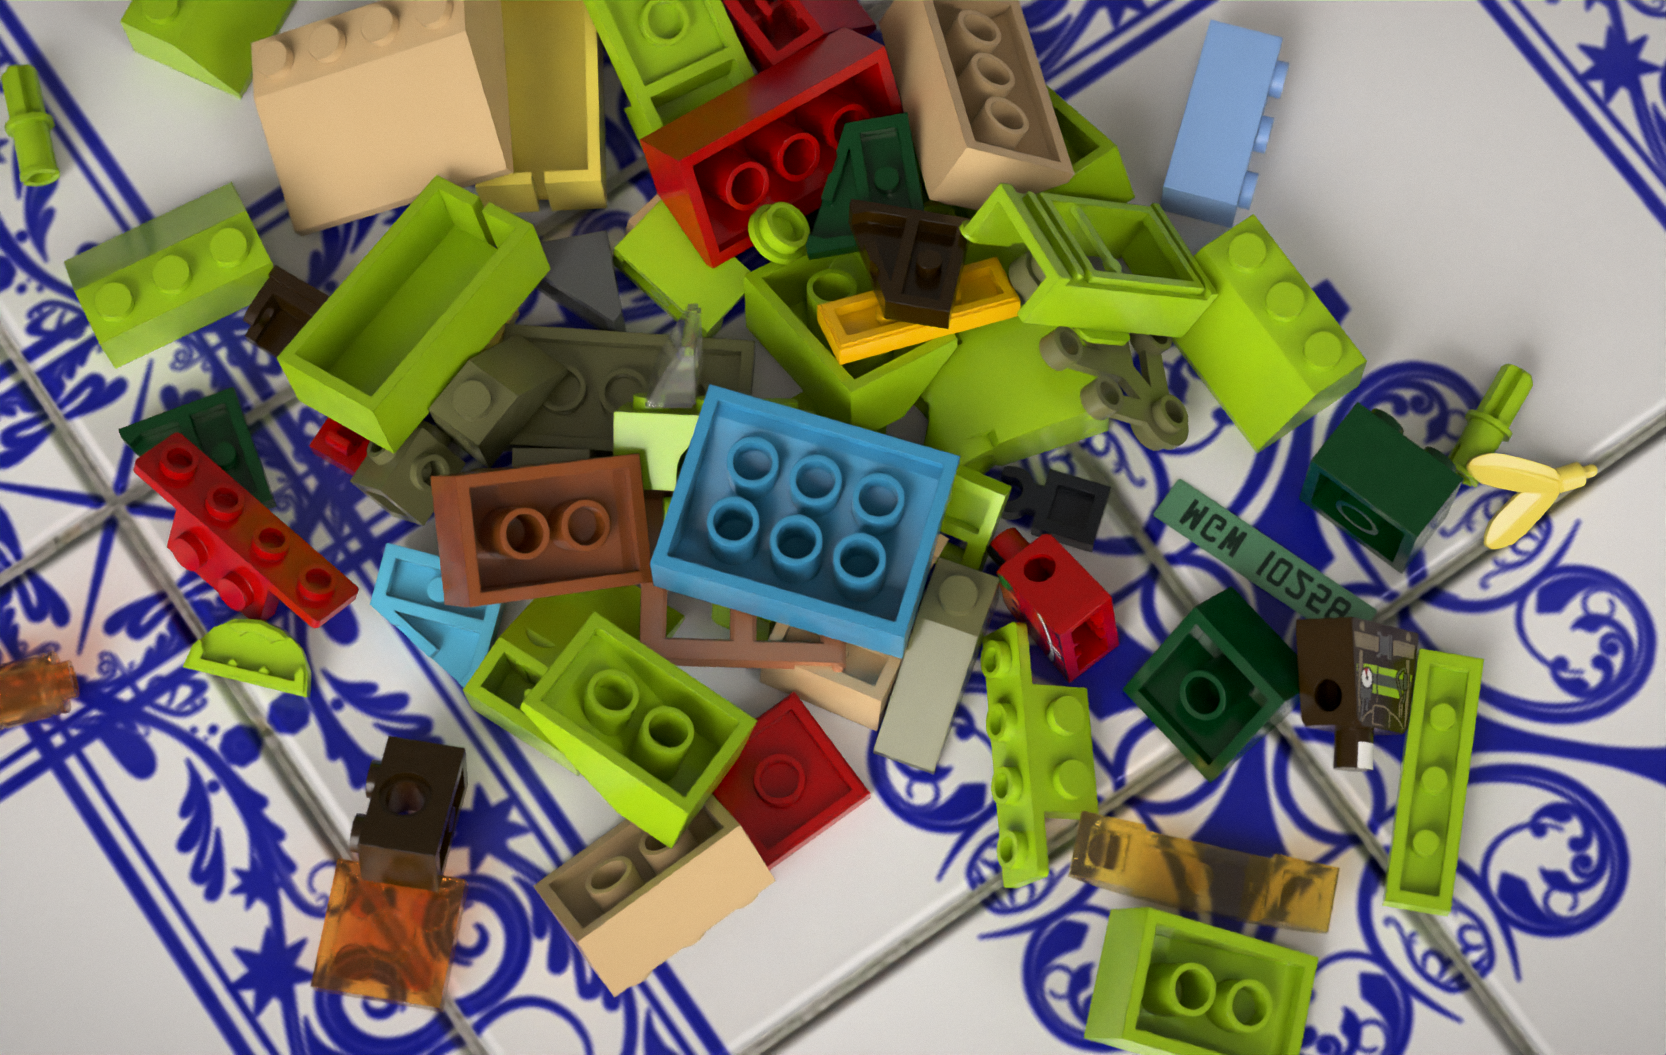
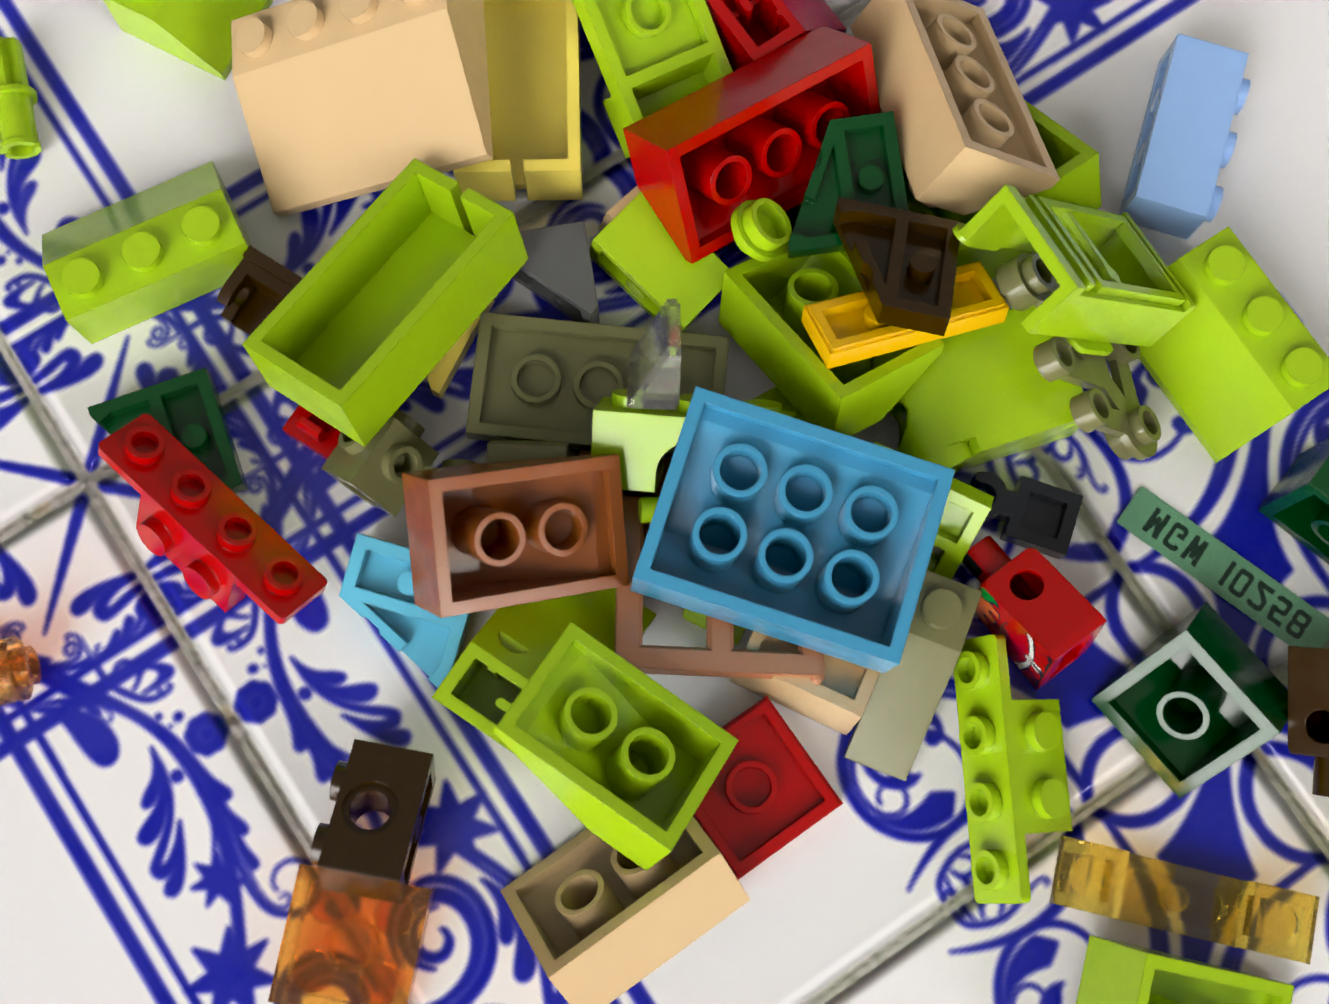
camera: 10 degrees left, 5 degrees up
(253, 654) = (220, 644): lime plate -> none
(496, 397) = (471, 387): olive slope -> none

